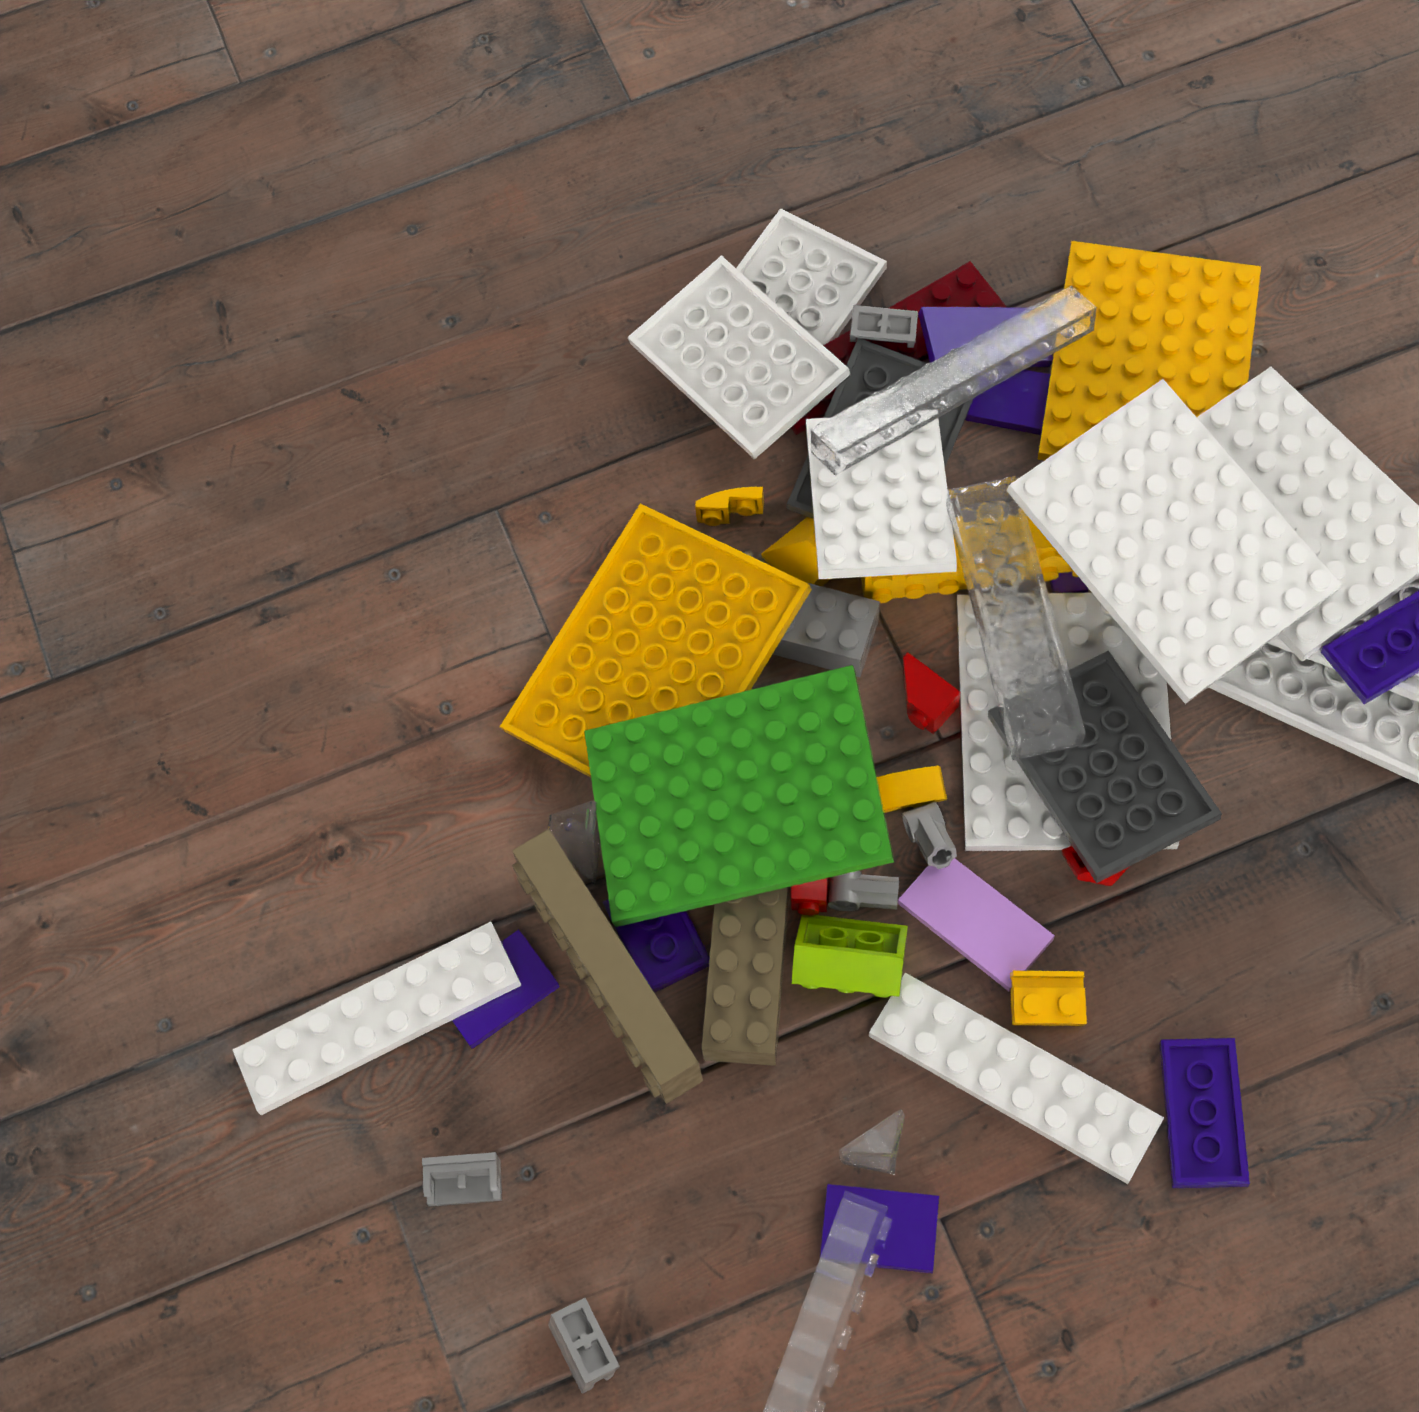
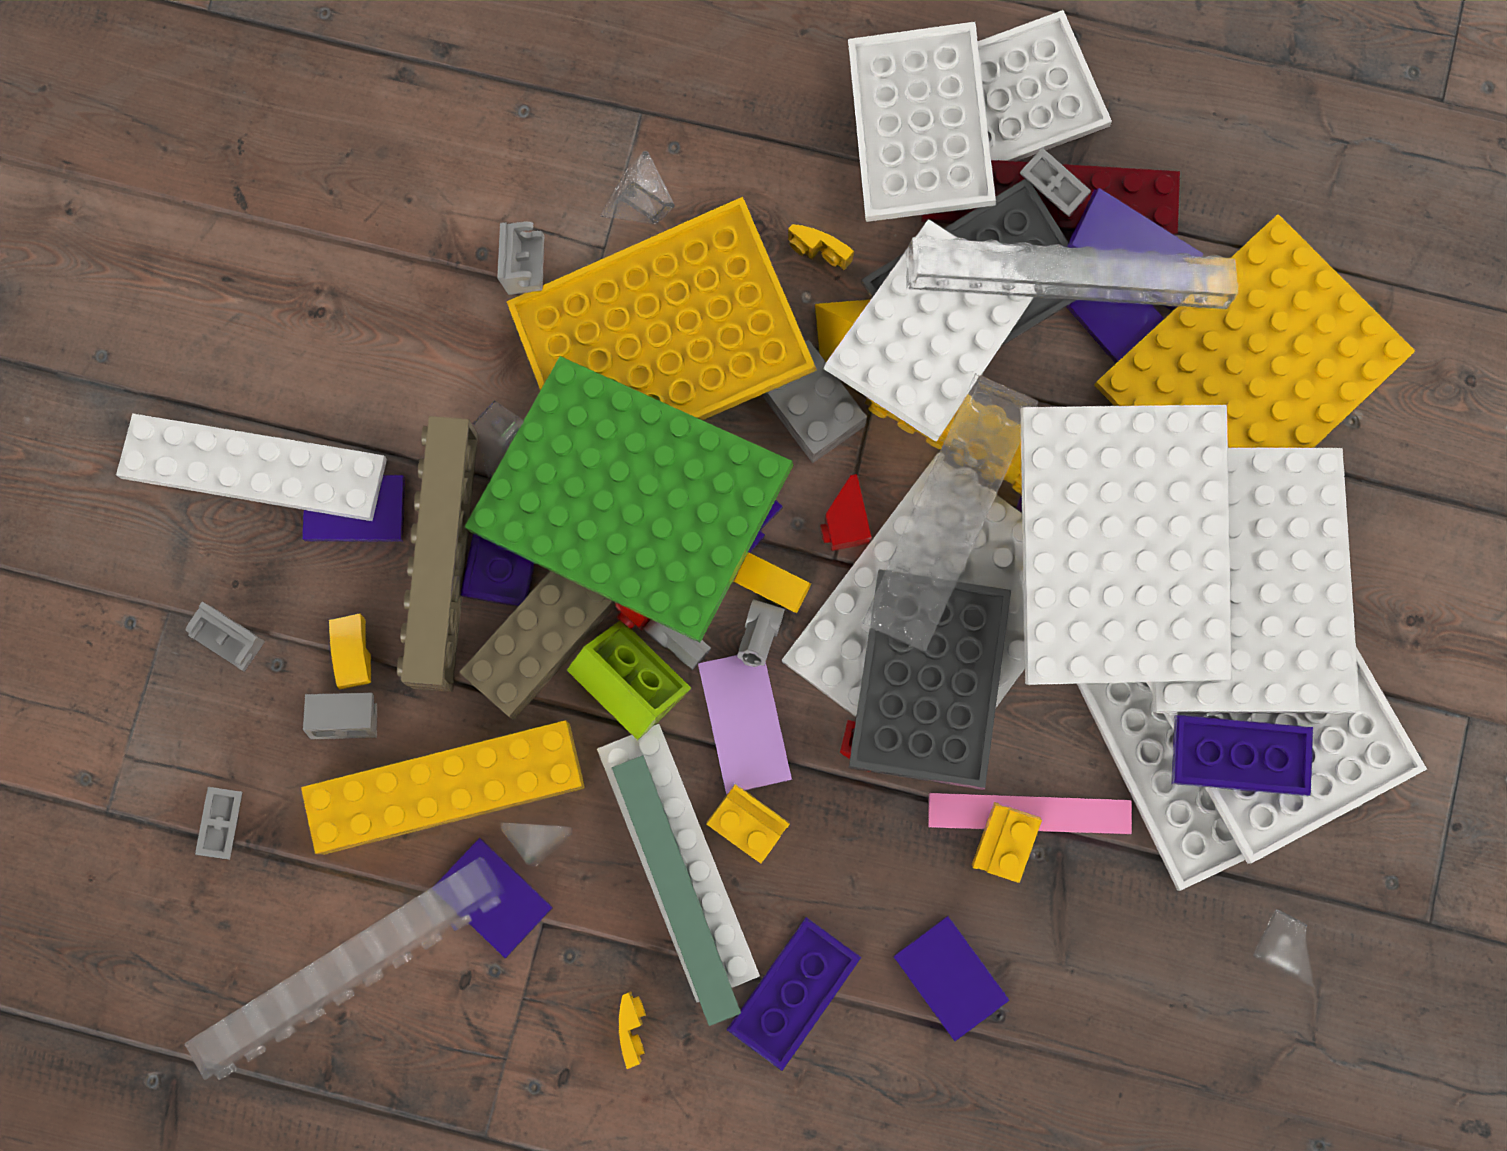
camera: 30 degrees right, 15 degrees up
(487, 682) = (520, 258): none -> light grey hinge
(546, 568) = (639, 194): none -> clear slope
(587, 1109) = (349, 651): none -> yellow slope
(621, 1170) = (340, 716): none -> light grey hinge
(761, 1163) = (442, 788): none -> yellow brick
(1036, 1095) = (676, 890): none -> sand green tile
(1082, 1236) = (629, 1018): none -> yellow slope
(1269, 821) = (1057, 814): none -> bright pink tile
(1272, 854) = (1006, 842): none -> yellow plate
(1322, 1000) = (951, 978): none -> dark purple tile

